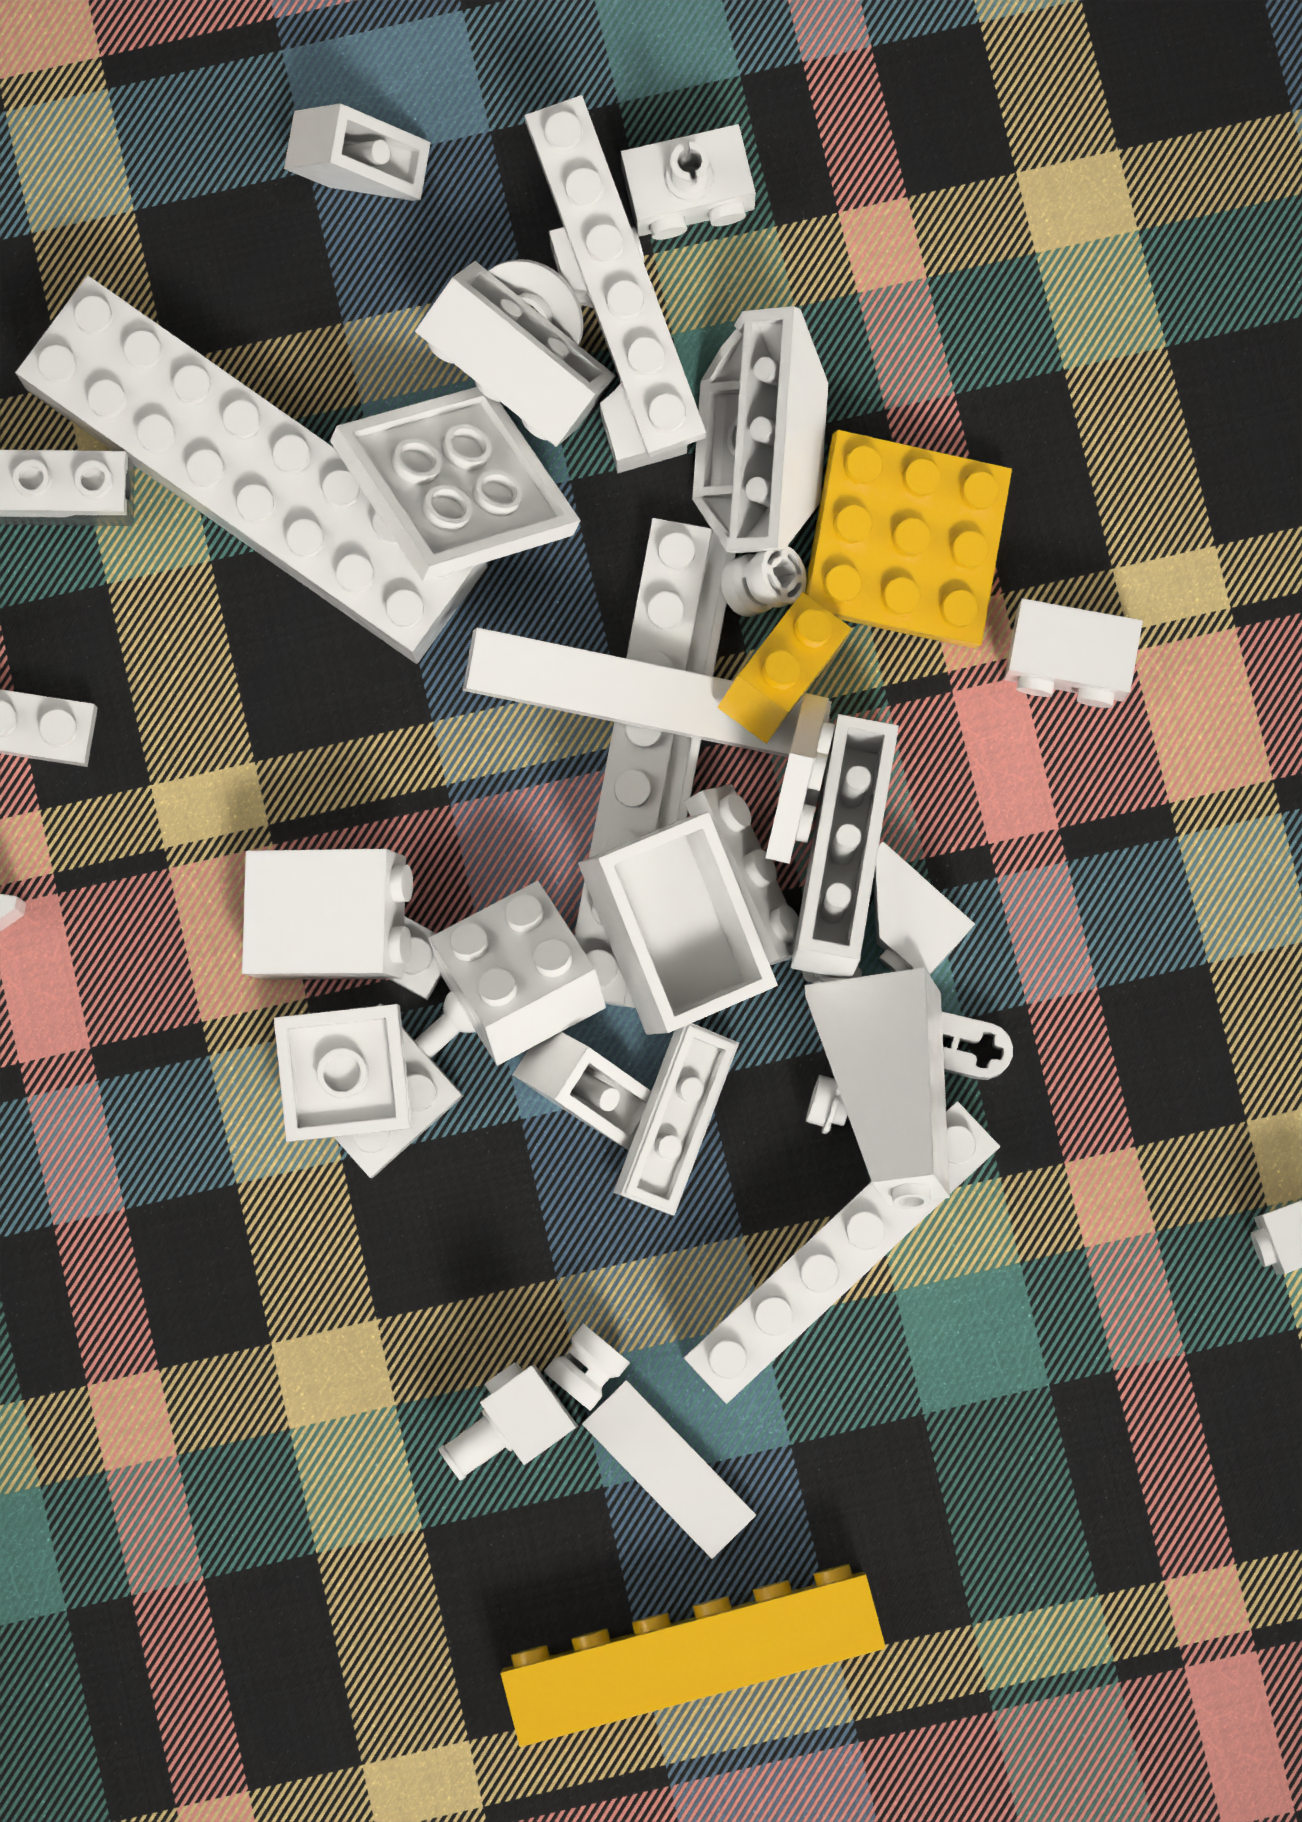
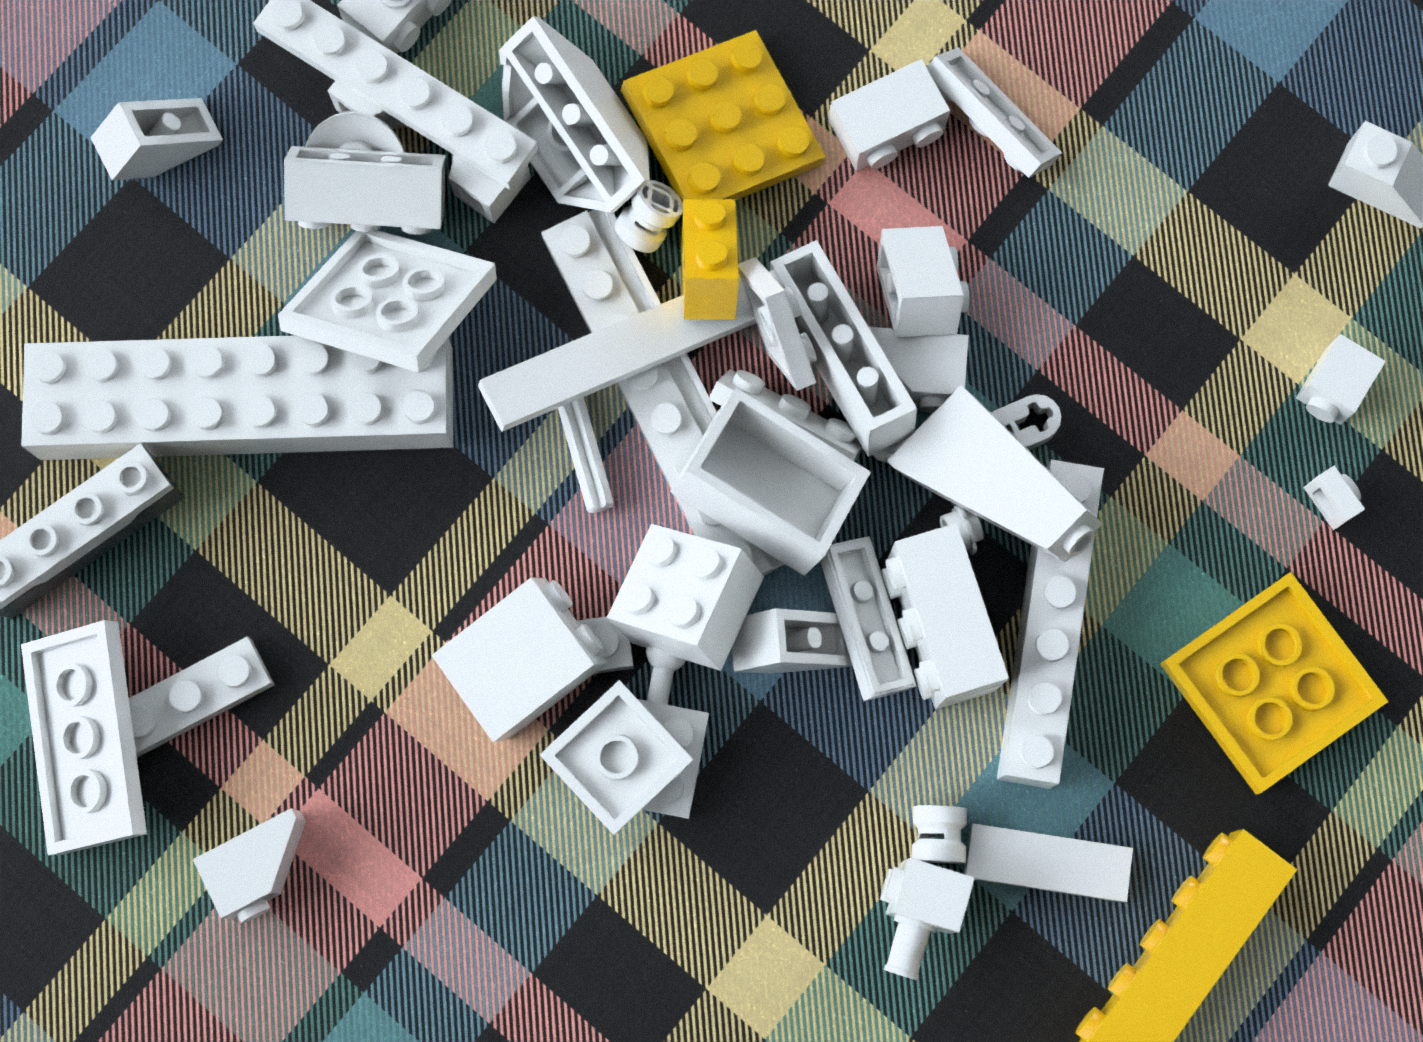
camera: 40 degrees left, 5 degrees down
(531, 769) = (586, 456): none -> white axle
(740, 1171) = (944, 617): none -> white brick
(970, 839) = (921, 281): none -> white brick
(1009, 1466) = (1274, 683): none -> yellow plate
(1177, 722) = (992, 112): none -> white plate
(1209, 1339) = (1335, 496): none -> white plate

